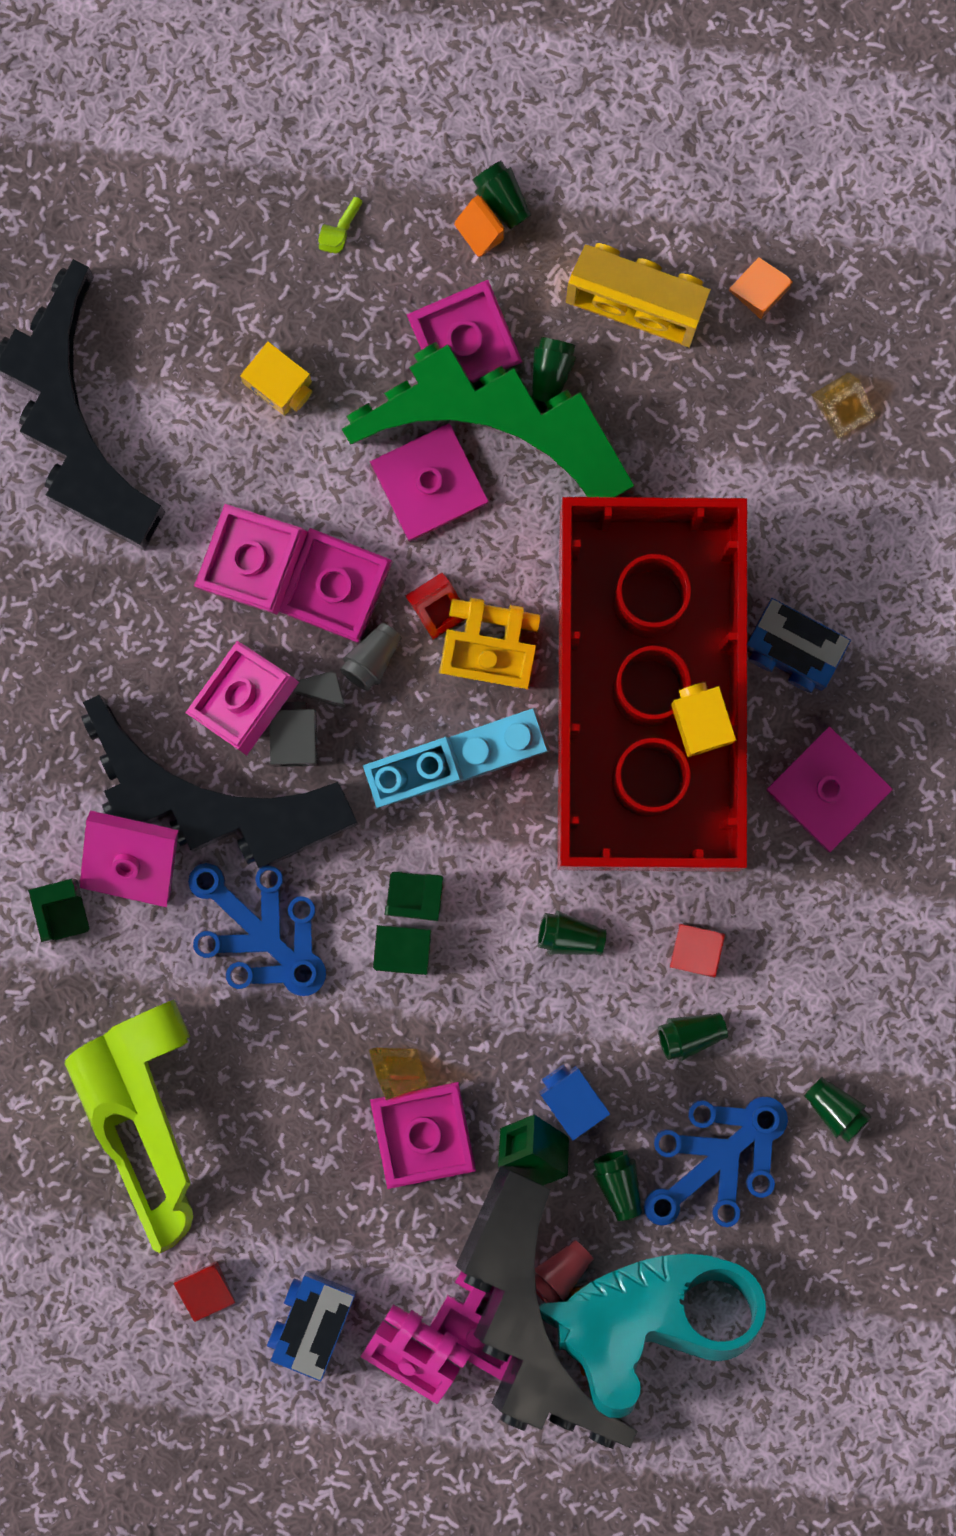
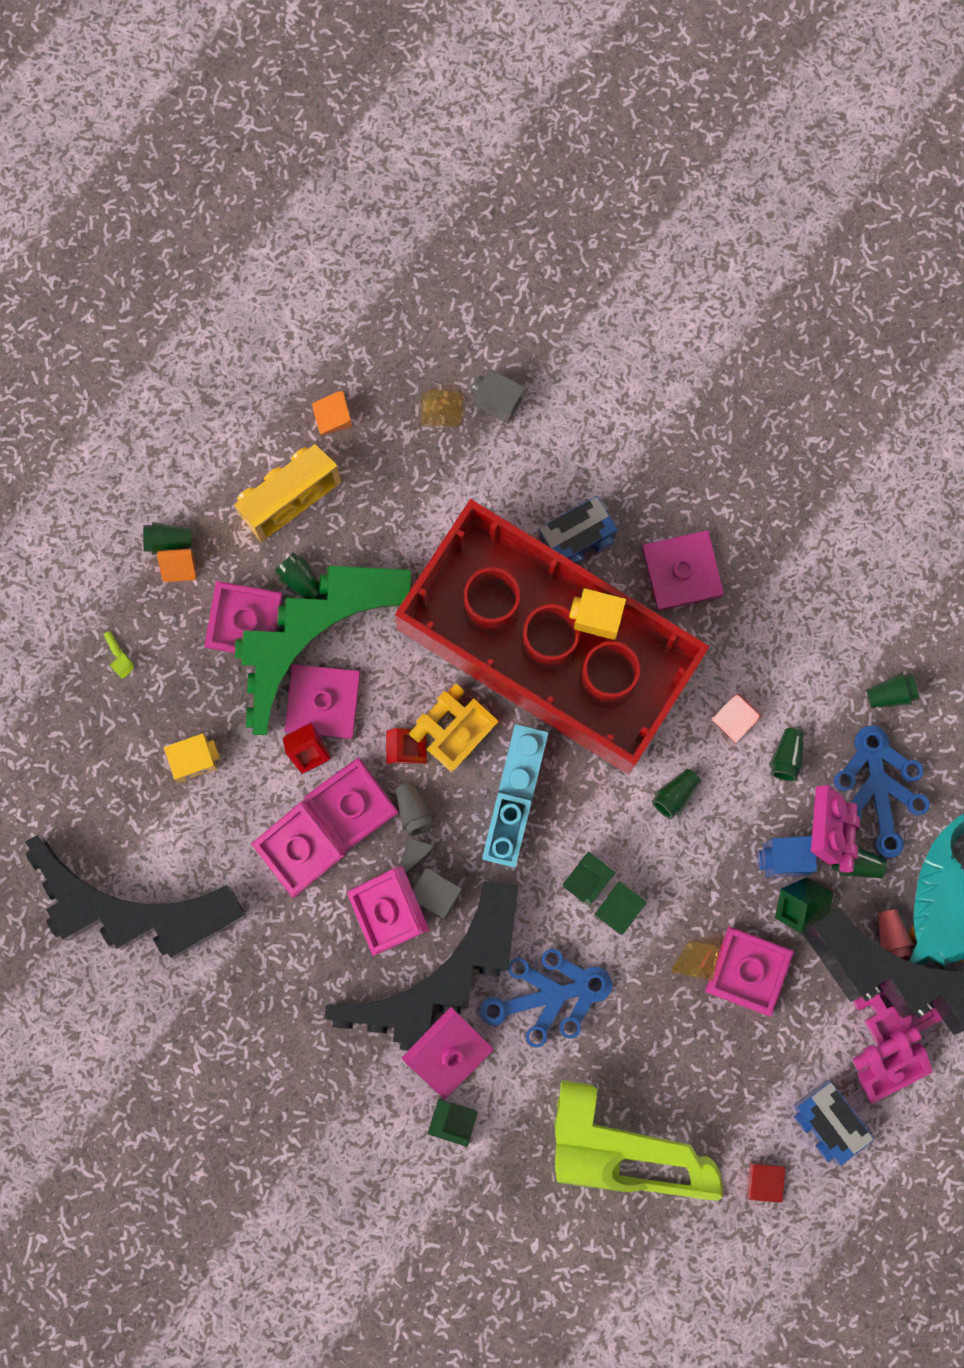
camera: 60 degrees left, 5 degrees down
(365, 497) = (305, 748): none -> red slope
(638, 1121) = (834, 829): none -> dark pink plate
(898, 457) = (497, 395): none -> dark grey brick

